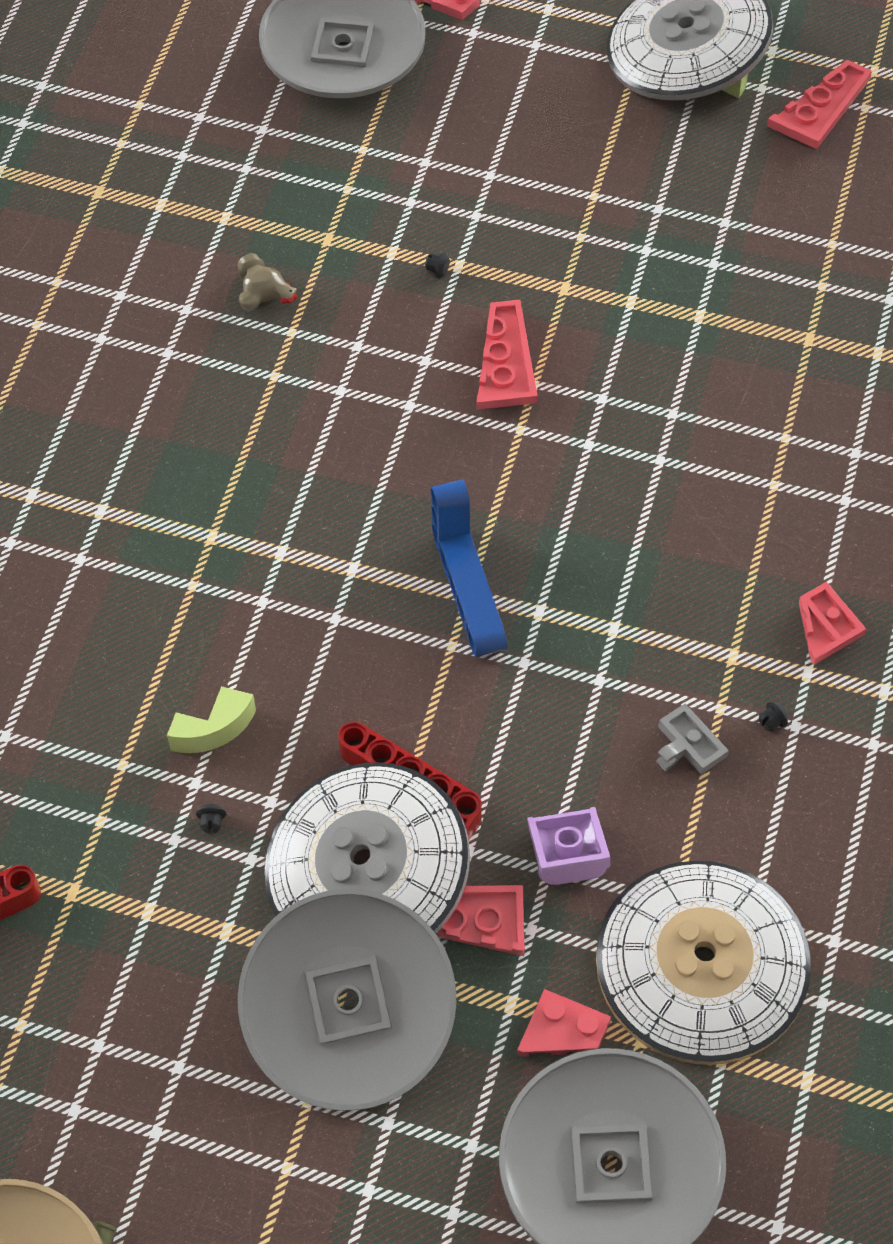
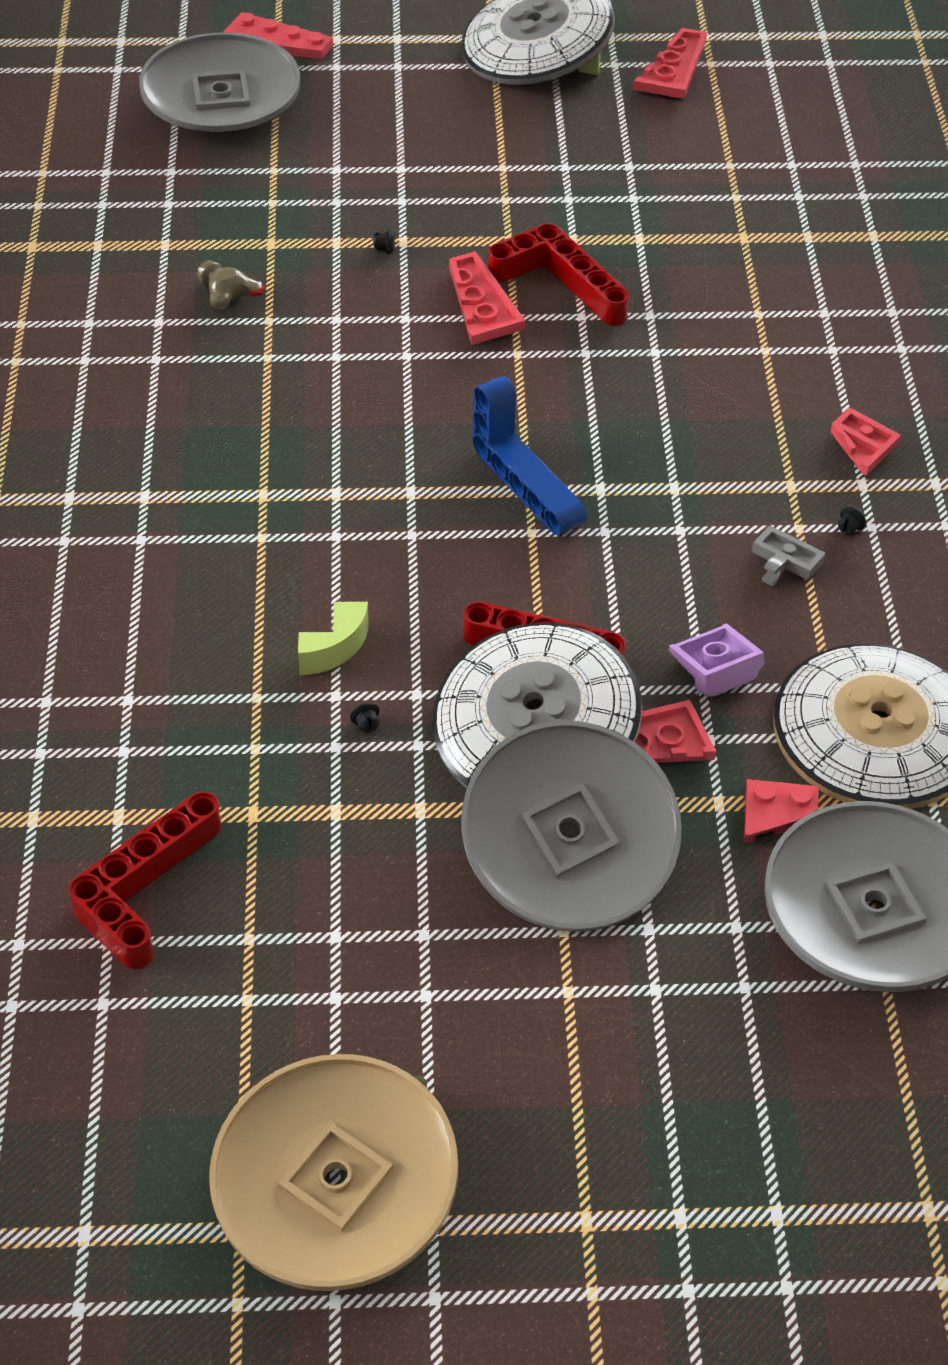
camera: 20 degrees left, 10 degrees down
(598, 310) = (563, 257): none -> red beam

